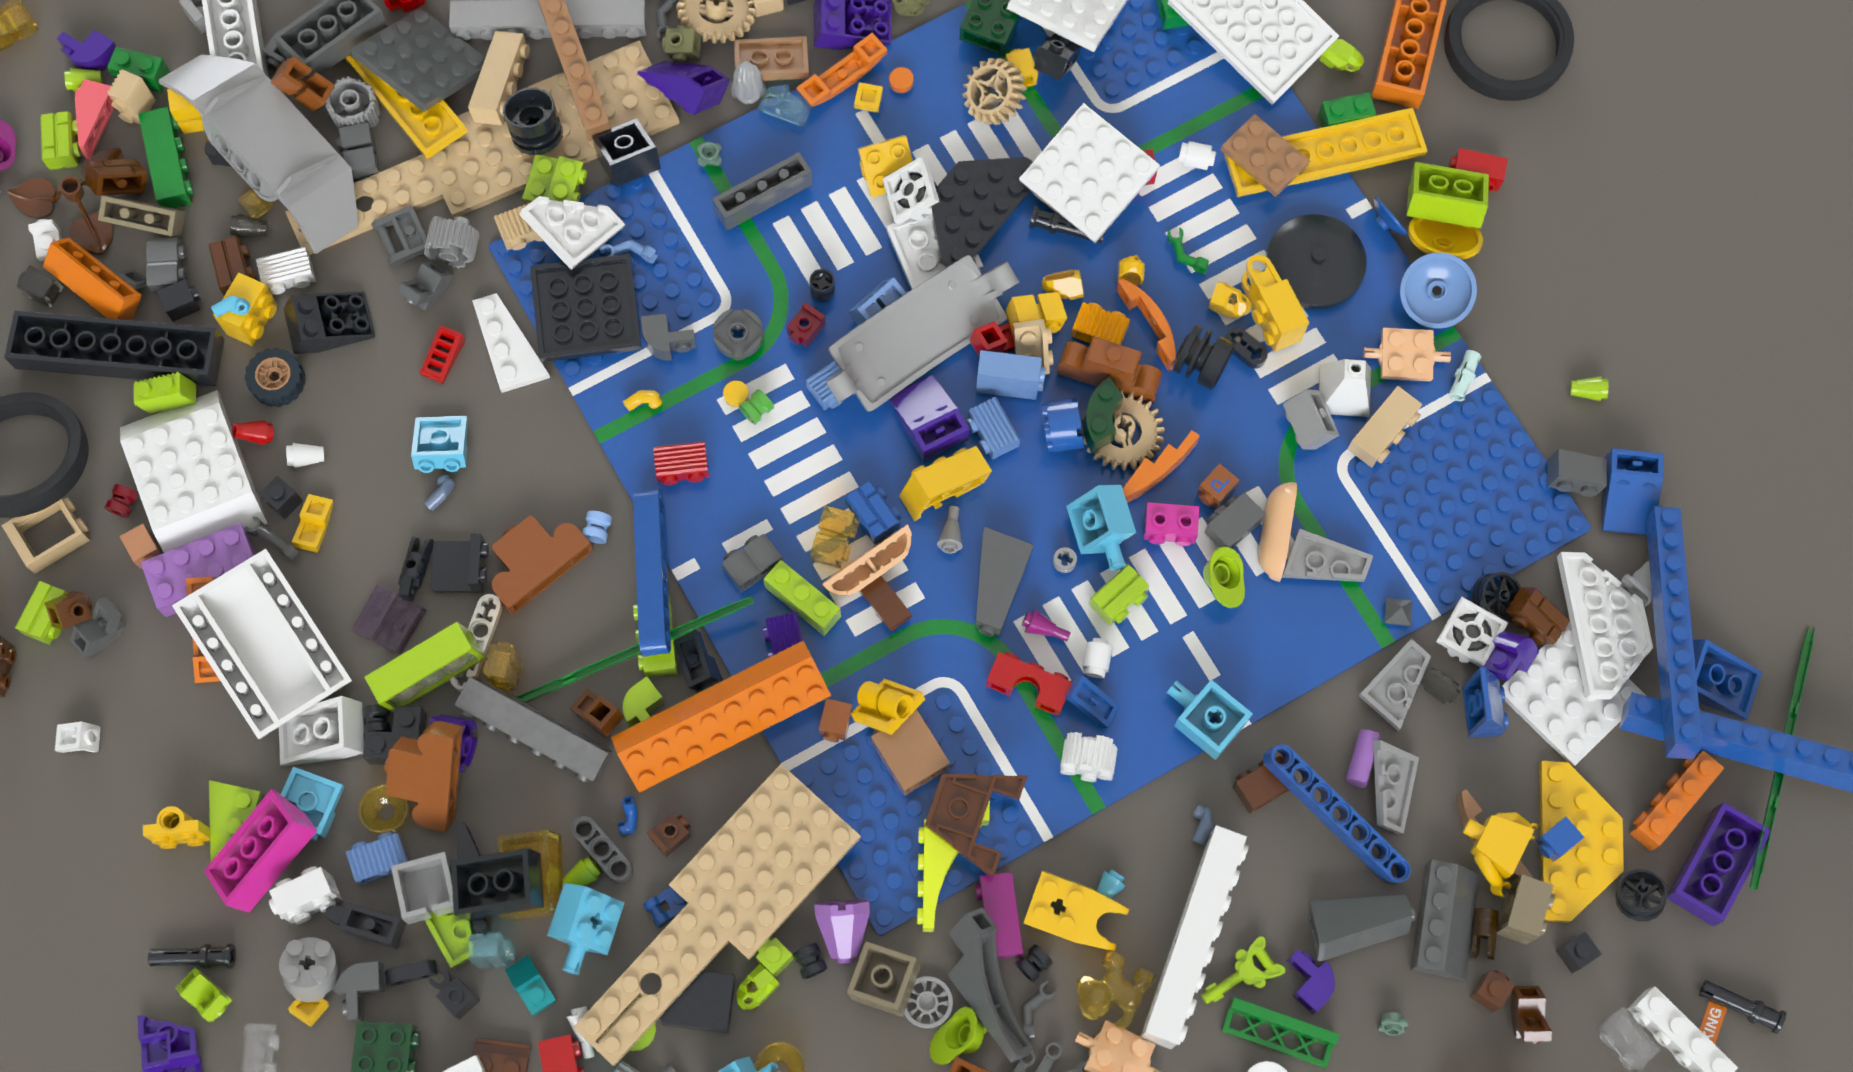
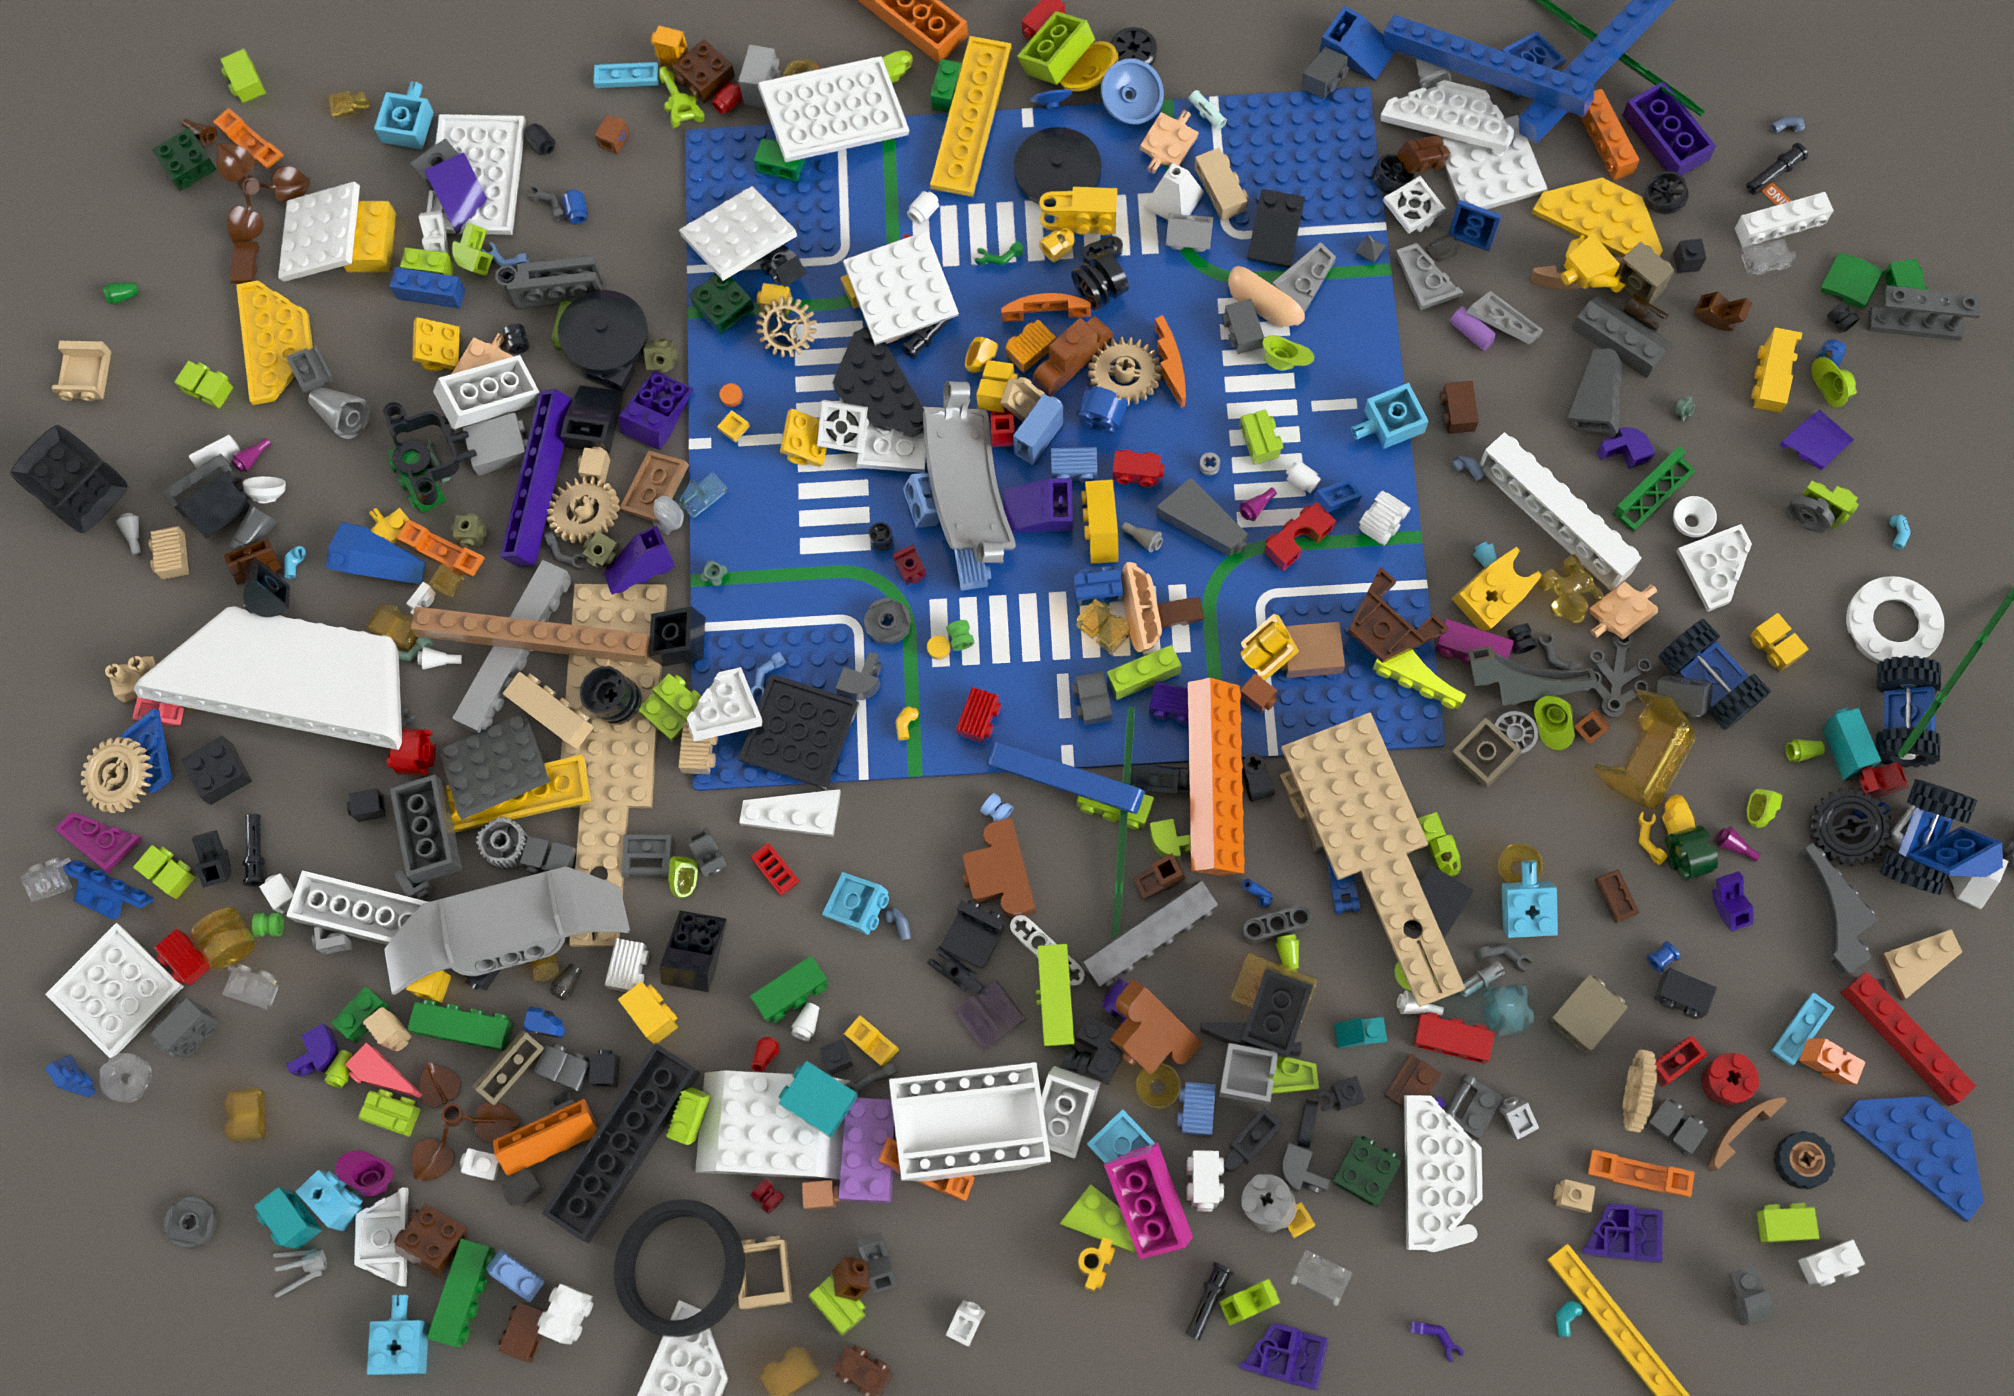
camera: 55 degrees left, 0 degrees up
(116, 177) = (459, 1073): reddish brown brick -> none
(199, 226) = (543, 1023): none -> blue rock
(220, 494) = (817, 1099): none -> teal brick
(229, 259) = (596, 1010): reddish brown brick -> none
(231, 304) = (648, 1014): medium azure arm -> none
(261, 374) = (714, 1005): black wheel -> none
(310, 92) = (473, 871): dark orange piece -> none
(328, 425) = (790, 990): none -> green brick
(391, 275) = (682, 875): none -> lime rock
(451, 241) = (679, 813): light grey brick -> none
(490, 951) = (1323, 1047): clear light blue brick -> none
(503, 666) = (1084, 933): clear yellow brick -> none
(585, 923) = (1336, 962): medium azure brick -> none
(666, 843) = (1285, 874): reddish brown brick -> none
(744, 765) = (1257, 781): none -> black piece
(762, 191) = (774, 543): dark grey brick -> none
(809, 959) = (1443, 804): black wheel -> none
(843, 926) = (1428, 764): medium lavender cone -> none
(844, 73) = (699, 434): orange slope -> none
(1021, 496) = (1137, 468): none -> red brick
(1099, 415) = (1108, 375): dark green brick -> none
(1102, 523) = (1198, 418): medium azure brick -> none
(1131, 269) = (994, 300): yellow rock -> none
(1171, 523) = (1220, 372): dark pink brick -> none
(1217, 487) = (1208, 324): dark orange brick -> none
(1246, 971) = (1599, 489): lime piece -> none
(1265, 155) = (952, 157): medium nougat plate -> none
(1348, 816) = (1510, 365): blue beam -> none
(1365, 504) = (1276, 228): none -> black slope
(1492, 990) = (1691, 327): reddish brown brick -> none
(1506, 263) = (1139, 40): none -> black wheel
(1511, 653) = (1446, 187): dark purple brick -> none
(1559, 839) = (1603, 223): blue brick -> none
(1590, 388) = (1261, 31): lime cone -> none
(1811, 994) = (1788, 121): none -> sand blue arm

